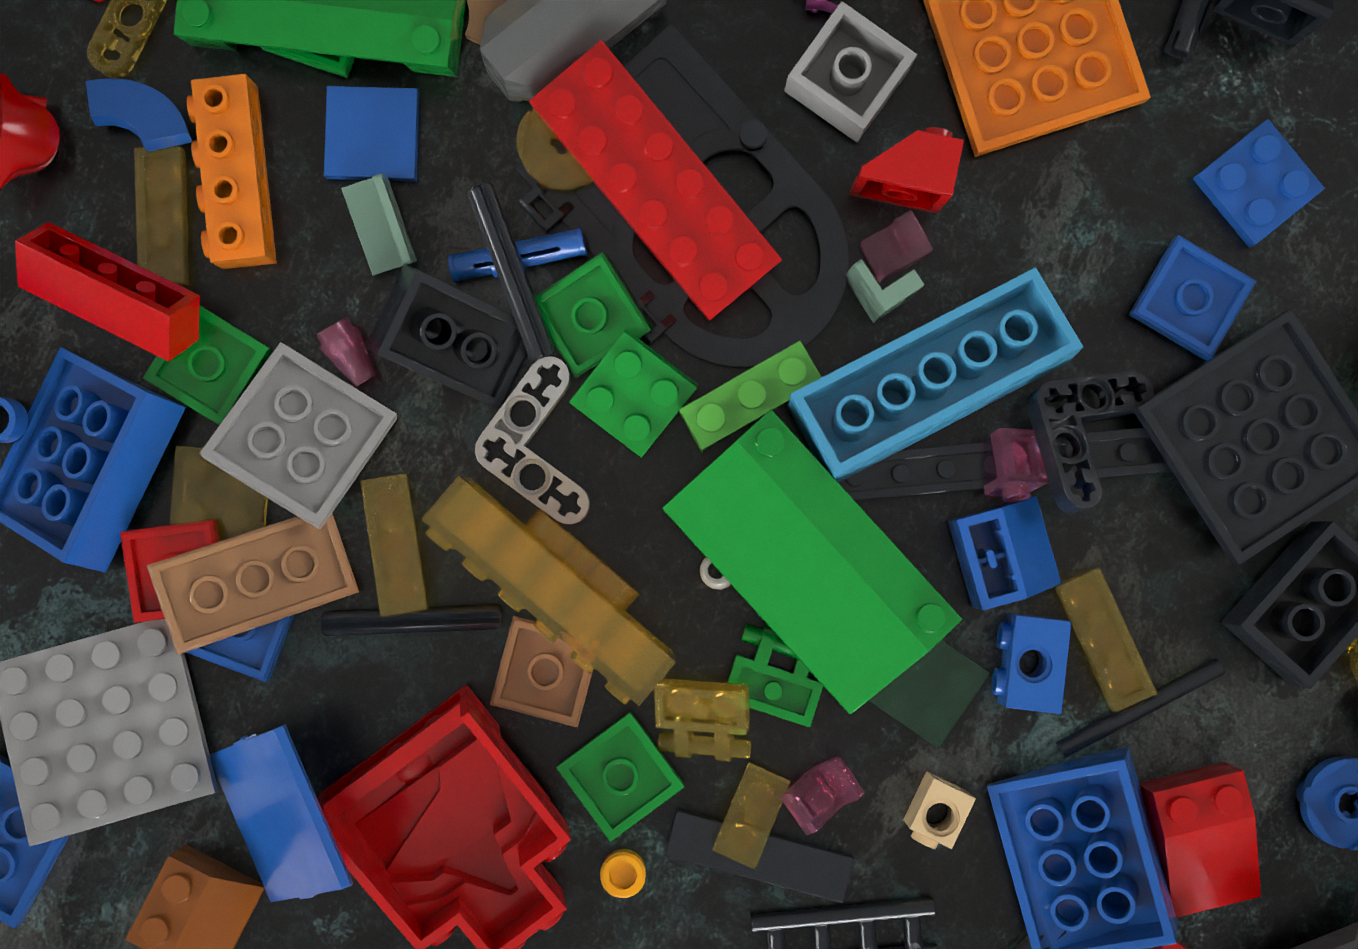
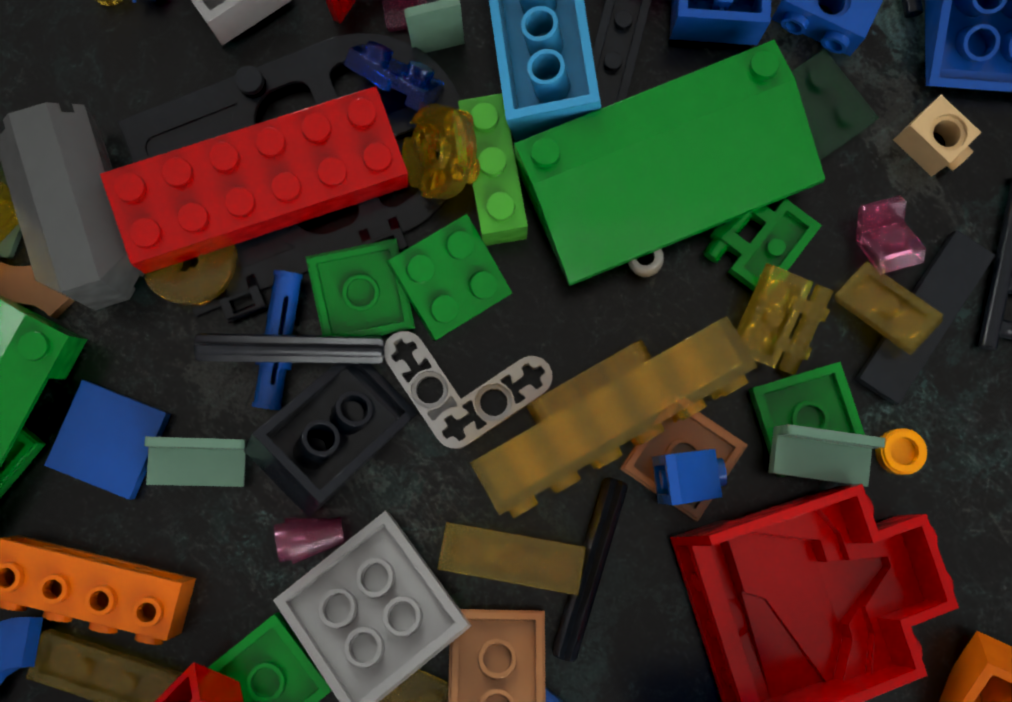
camera: 65 degrees left, 5 degrees down
(522, 681) = (688, 477): none -> blue slope
(587, 797) = (822, 454): none -> sand green panel
(766, 343) = (453, 134): none -> clear yellow plate
(805, 267) = (377, 65): none -> clear blue wing

